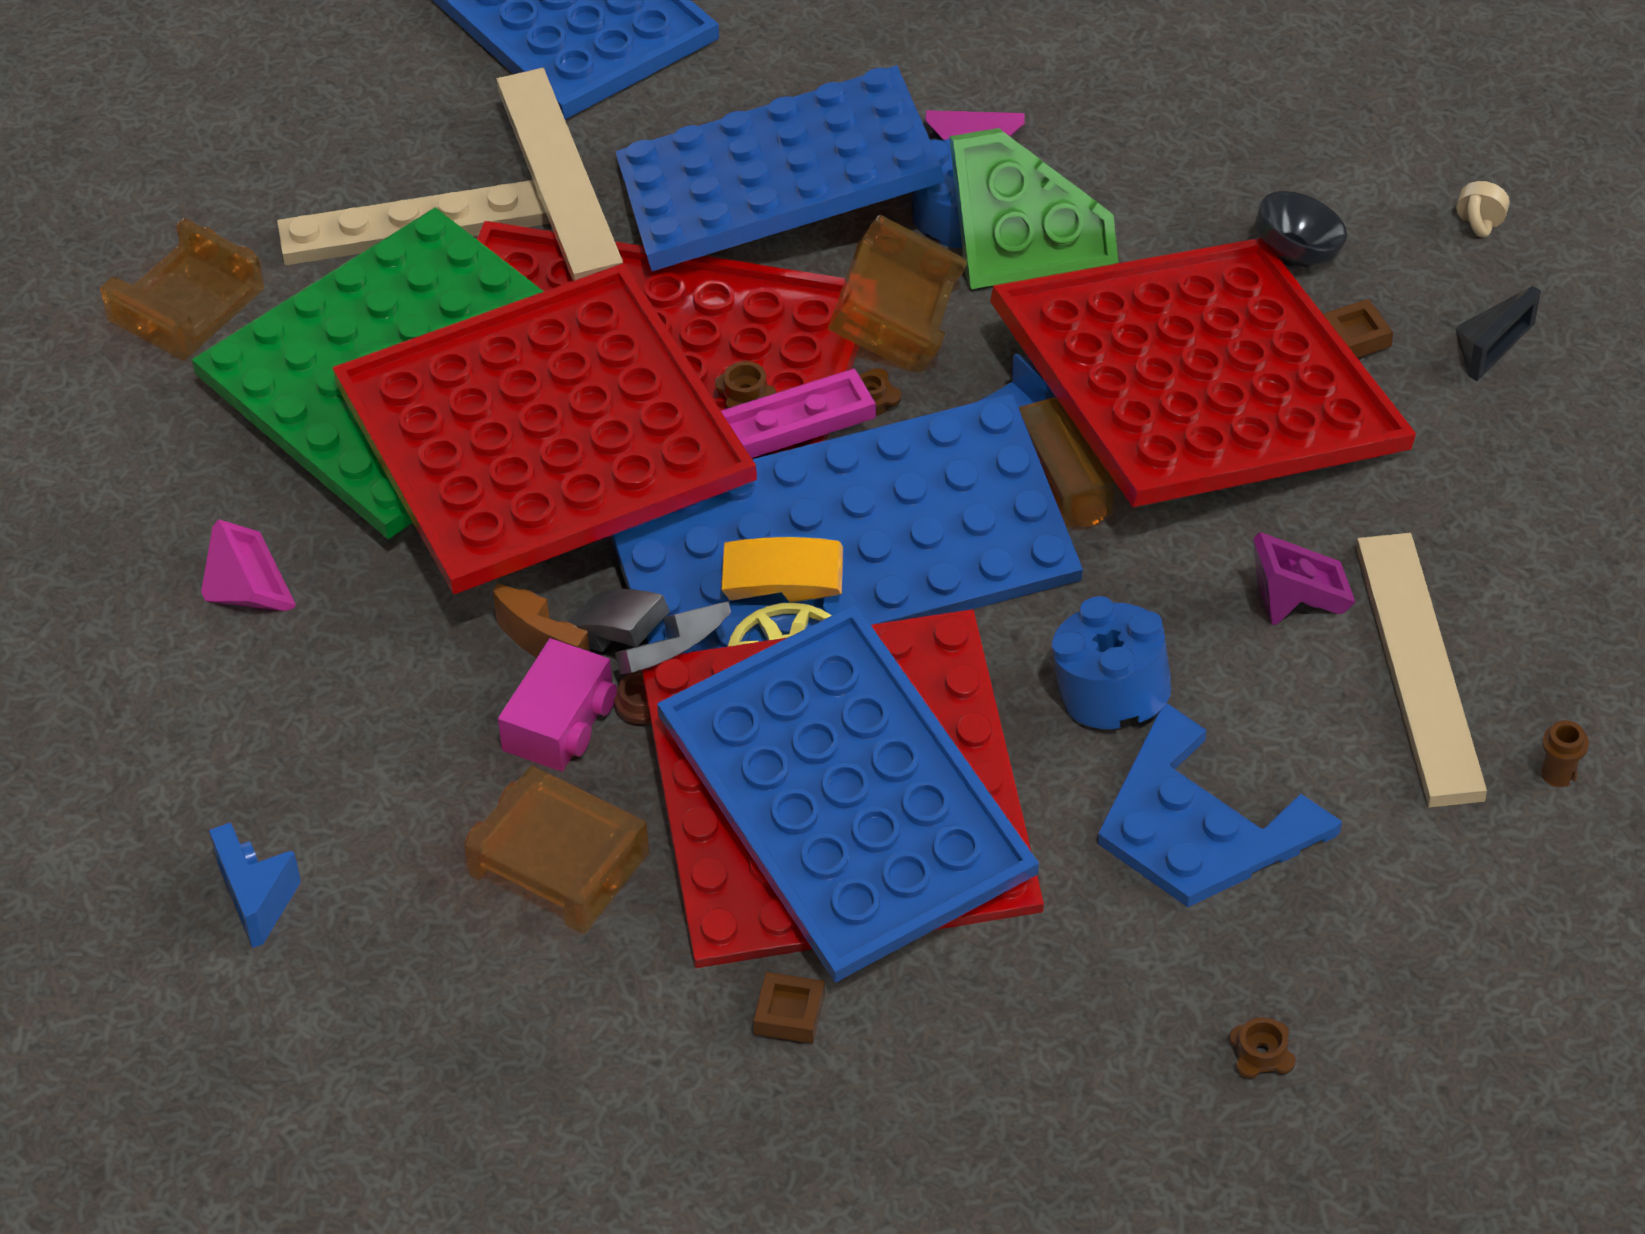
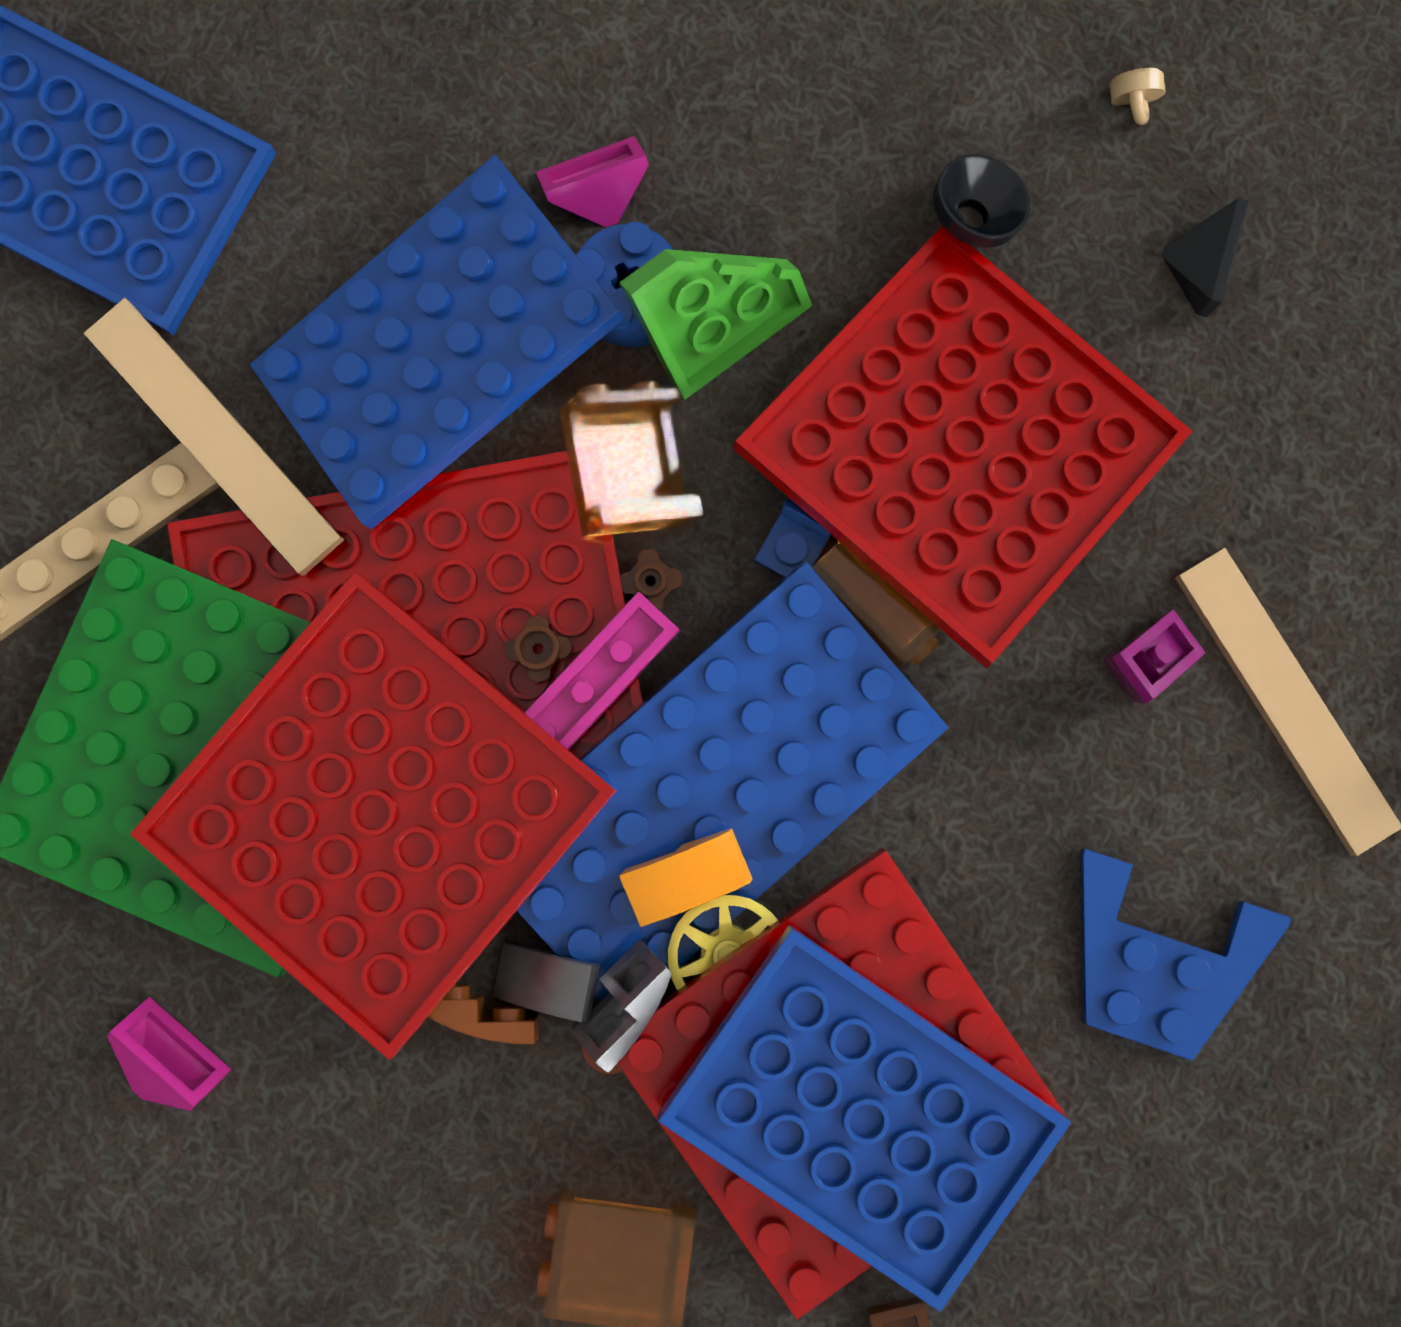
camera: 25 degrees left, 35 degrees up
(557, 705) = (540, 1101): dark pink brick -> none
(1111, 663) = (1008, 817): blue brick -> none
(1266, 1033) = (1331, 1193): reddish brown plate -> none
(1361, 327) = (1081, 303): reddish brown plate -> none

